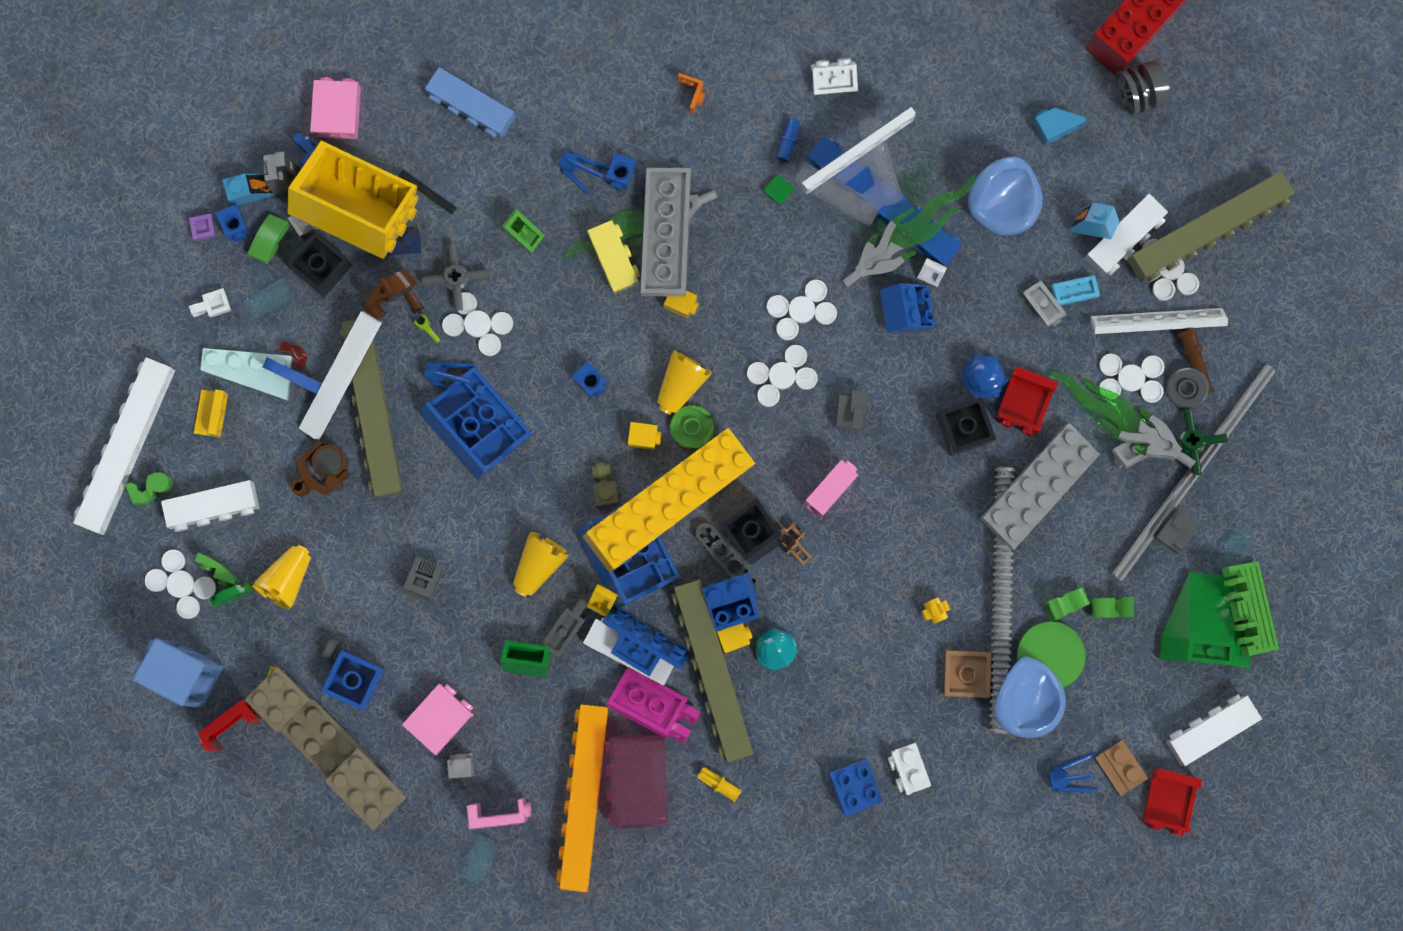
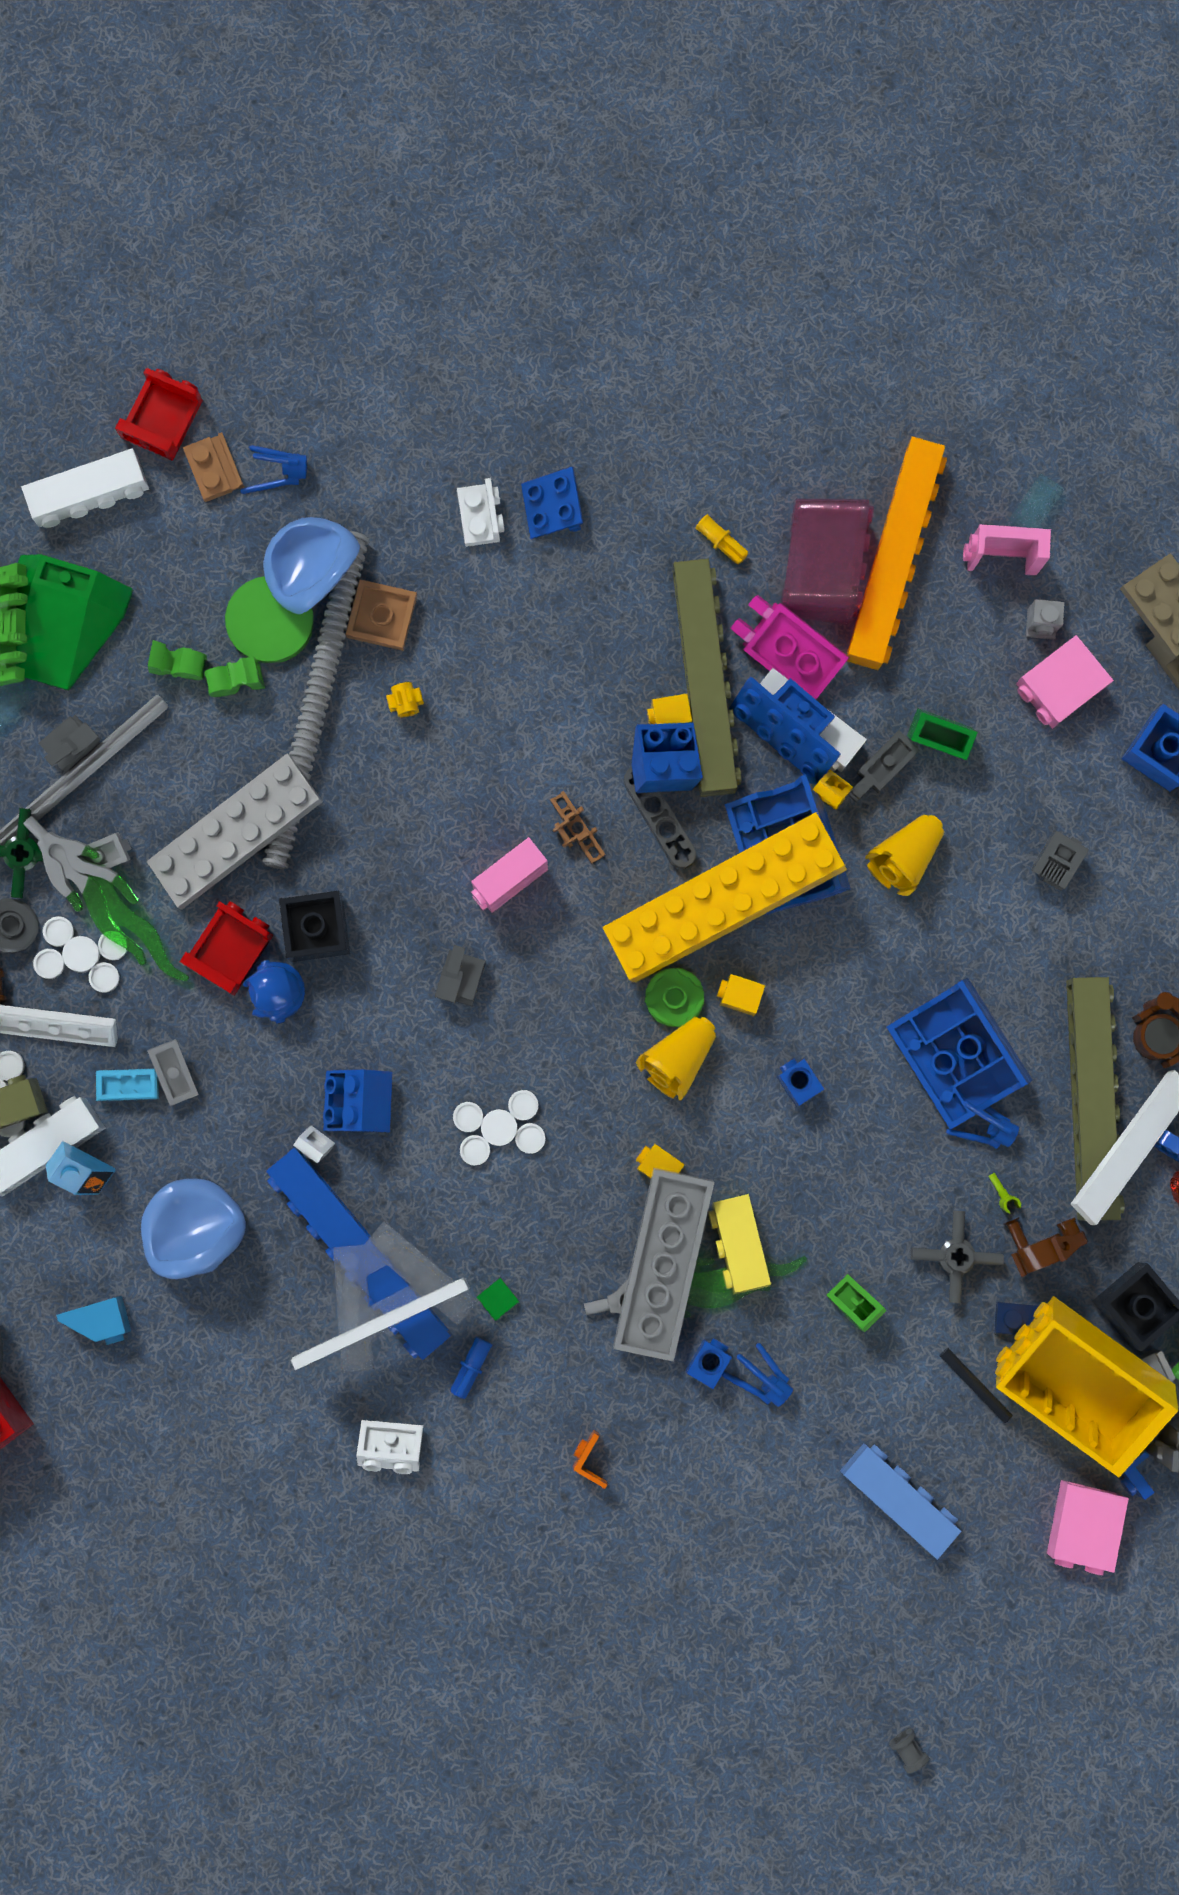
camera: 170 degrees left, 0 degrees up
(478, 325) = (934, 1186): white piece -> none
(604, 492) = (804, 933): olive plate -> none
(754, 531) = (620, 840): black brick -> none
(775, 649) = (619, 690): teal hair -> none
(782, 376) = (542, 1043): white piece -> none
(899, 236) = (349, 1197): clear neon green piece -> none

